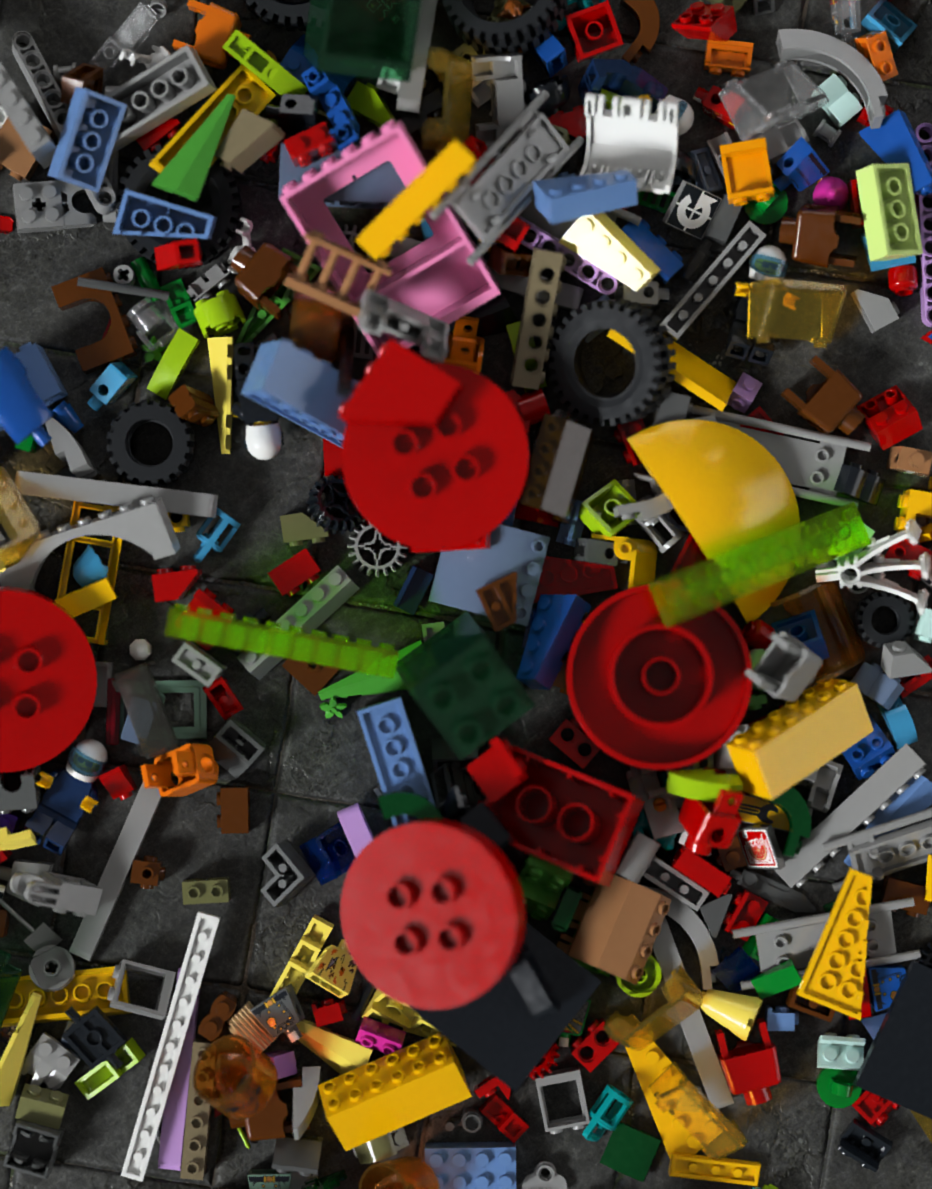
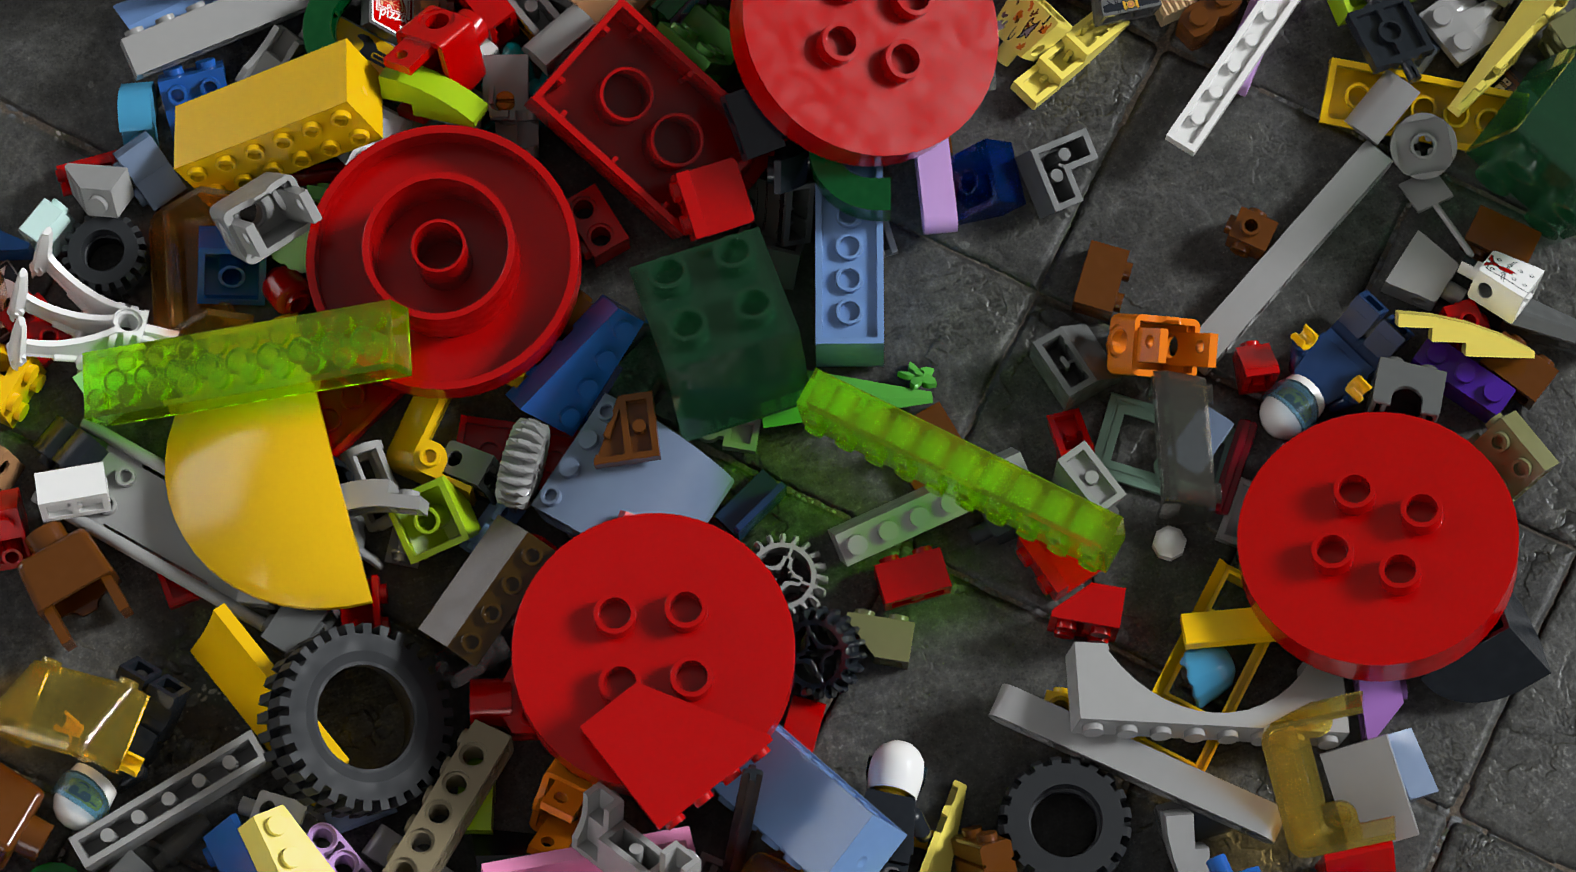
camera: 165 degrees left, 15 degrees down
(58, 892) = (1383, 236): light grey brick -> none
(85, 984) = (1382, 107): none -> light grey brick
(164, 993) = (1276, 62): light grey window -> none
(206, 890) = (1174, 184): olive brick -> none
(209, 541) = (1019, 656): dark azure piece -> none
(564, 563) = (522, 463): none -> light grey gear
(744, 392) = (182, 632): lavender bracket -> none
(845, 453) = (72, 492): none -> white hinge

